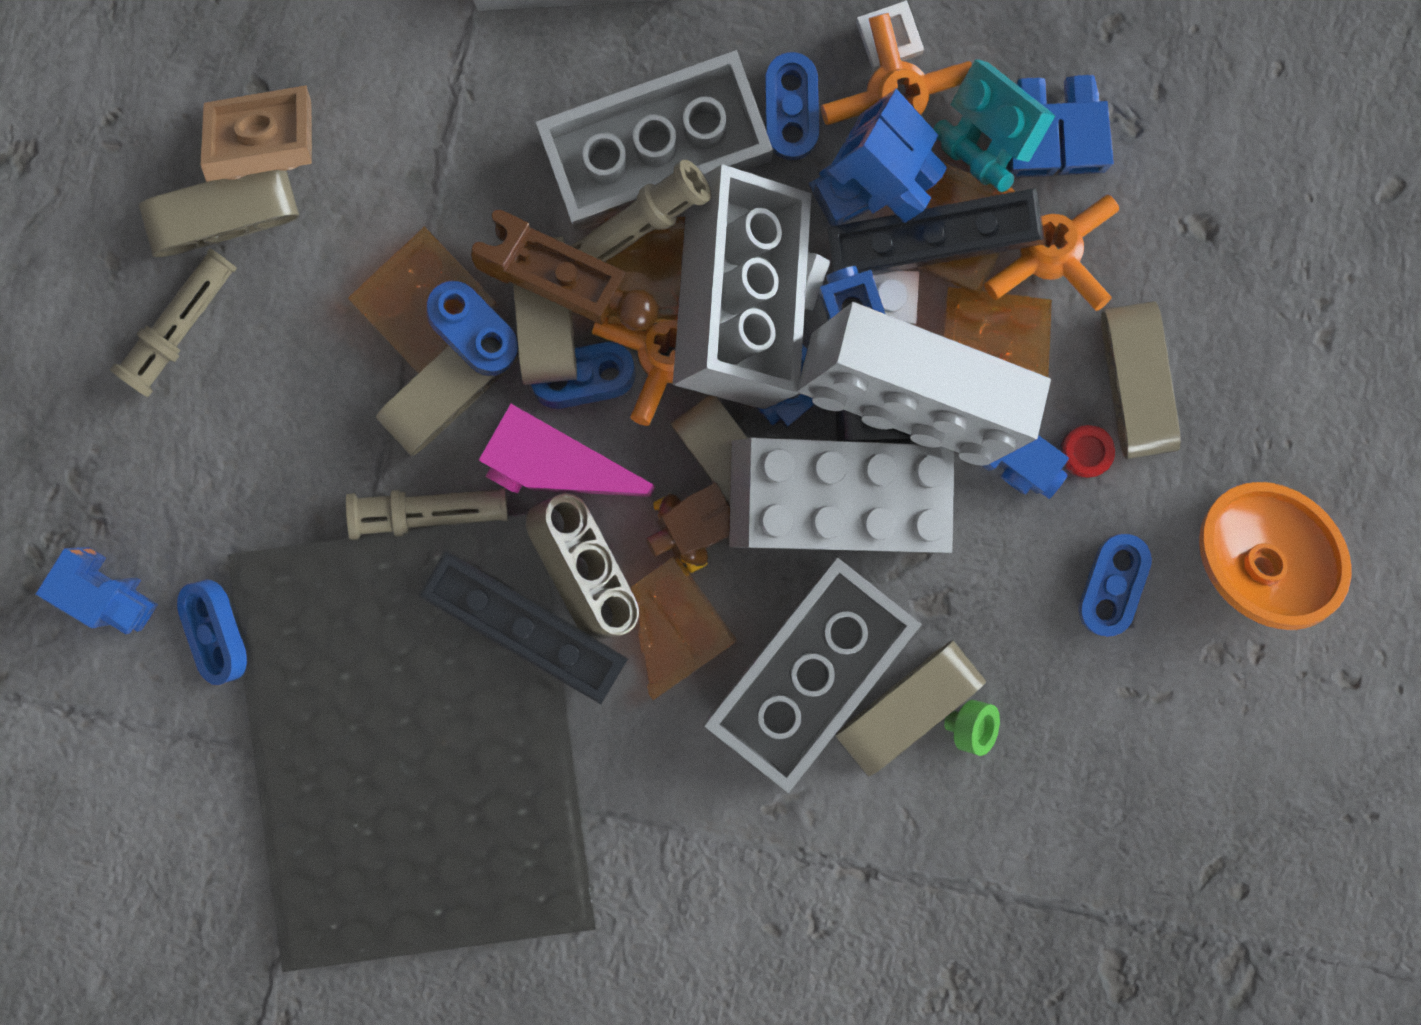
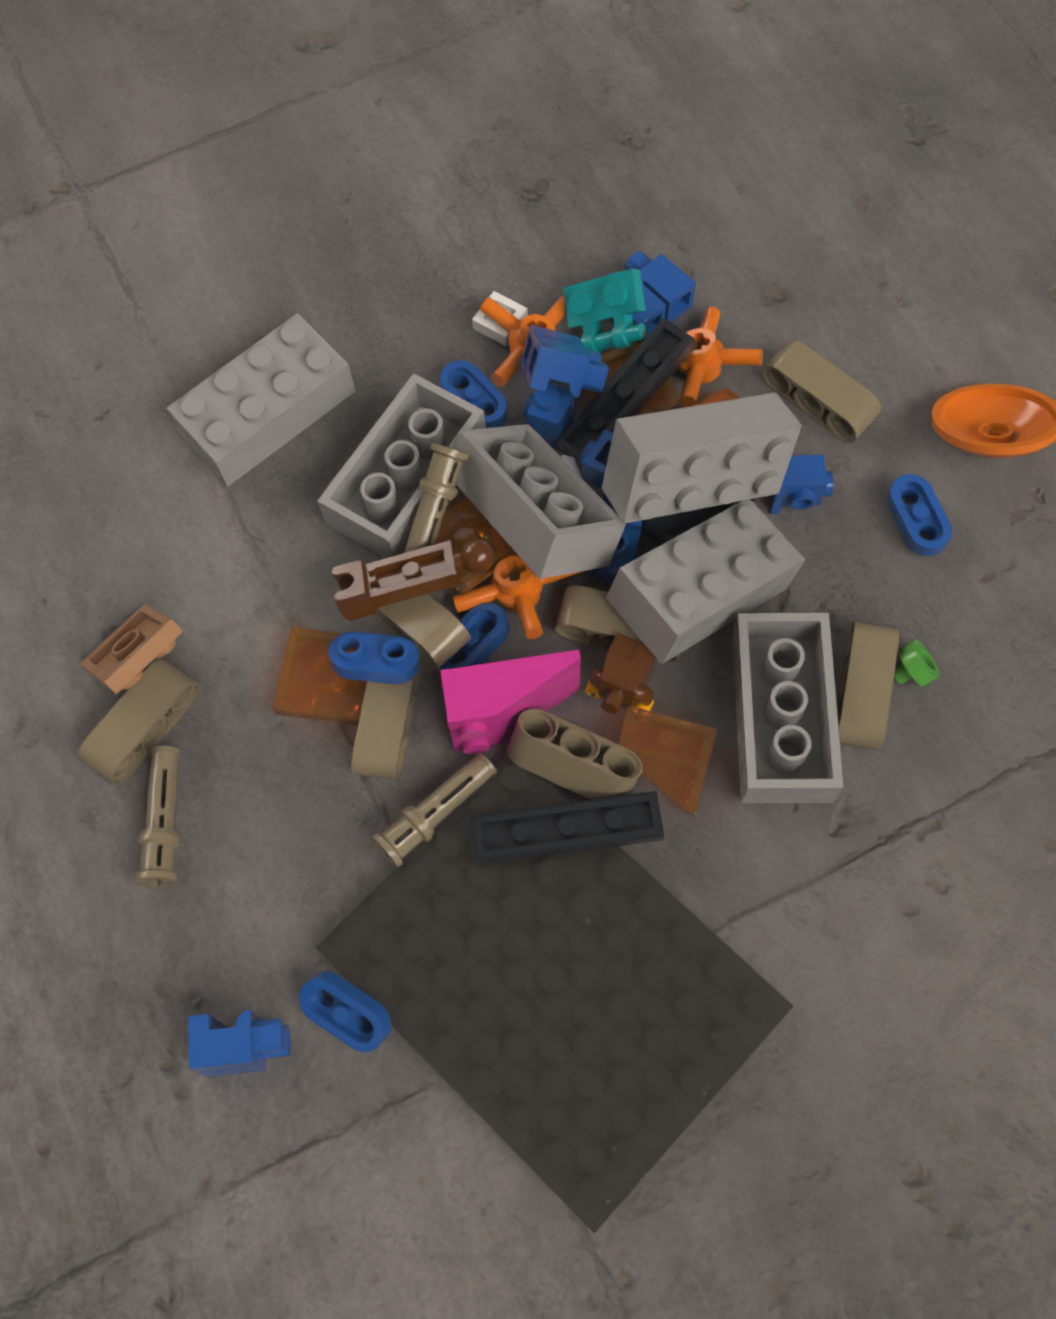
camera: 40 degrees left, 20 degrees down
(1089, 451) = (835, 452): red tile -> none

